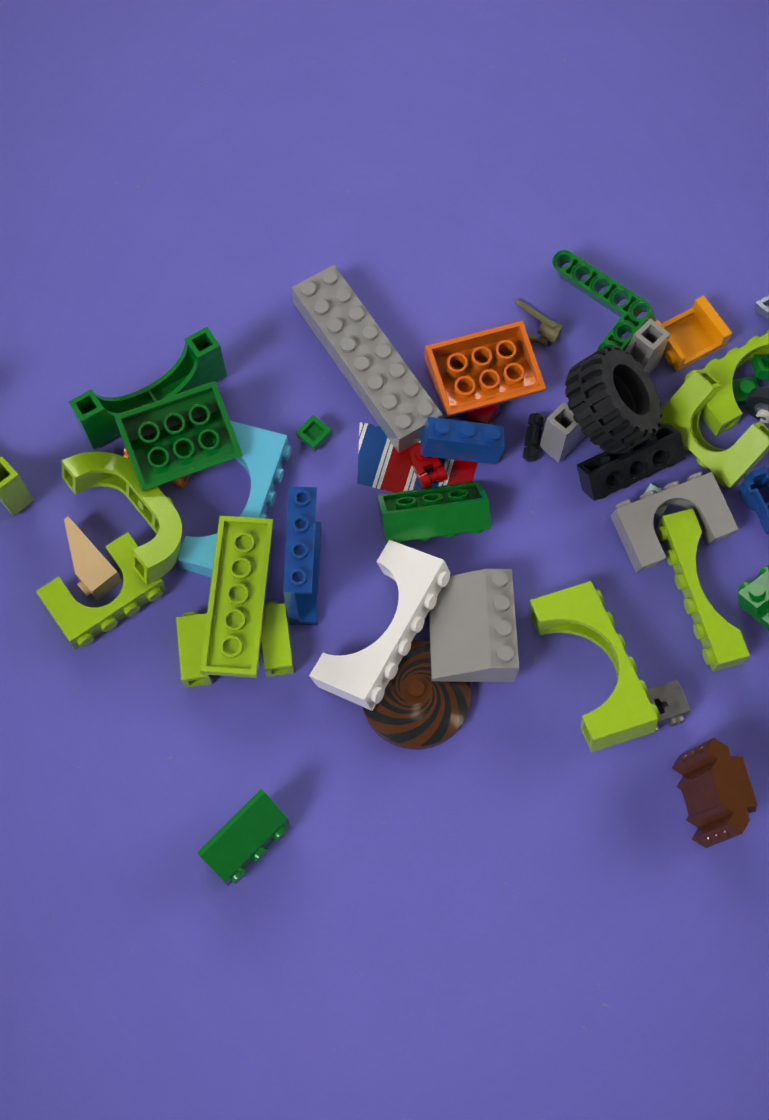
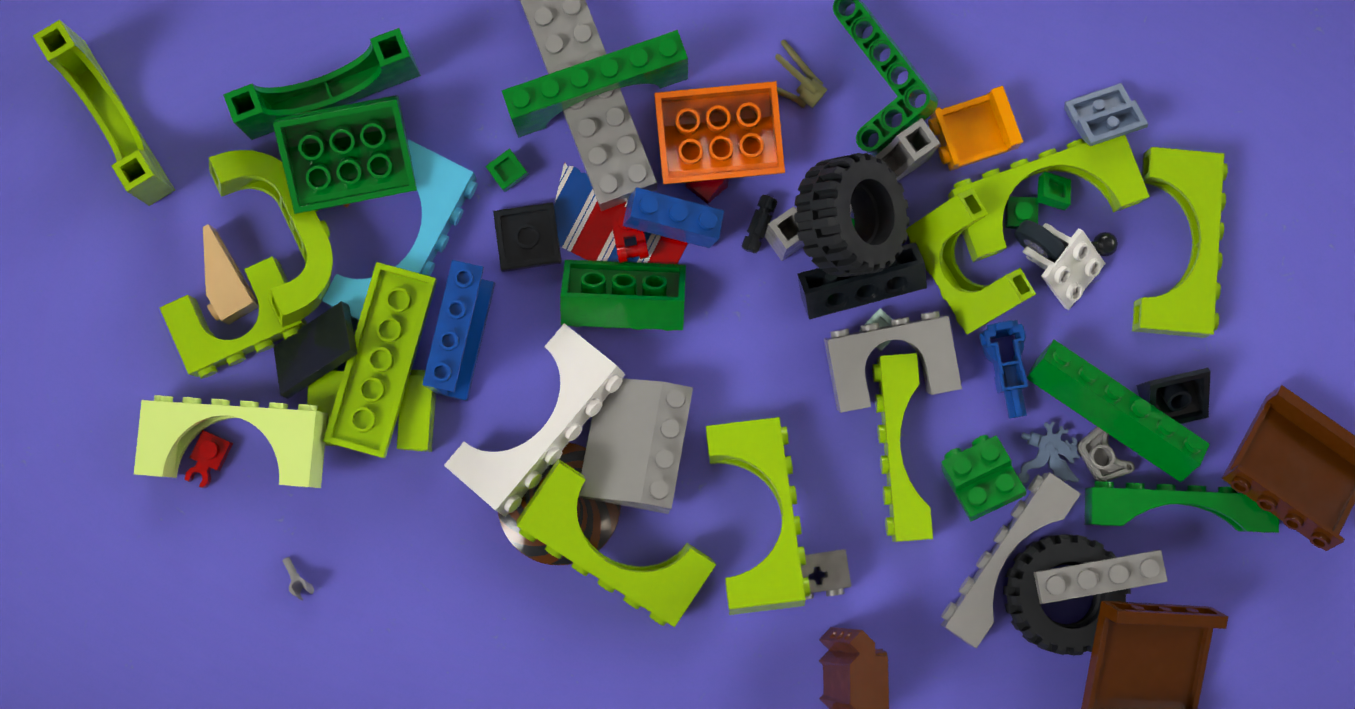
camera: 10 degrees right, 15 degrees up
(60, 689) = (170, 427): none -> yellowish green arch
(97, 711) = (209, 453): none -> red plate
(178, 599) = (315, 350): none -> black tile
(195, 807) = (297, 583): none -> light grey hand
(244, 838) = (342, 631): green slope -> none
(330, 367) = (653, 61): none -> green arch
(341, 483) = (527, 237): none -> black tile
(420, 702) = (660, 588): none -> lime arch

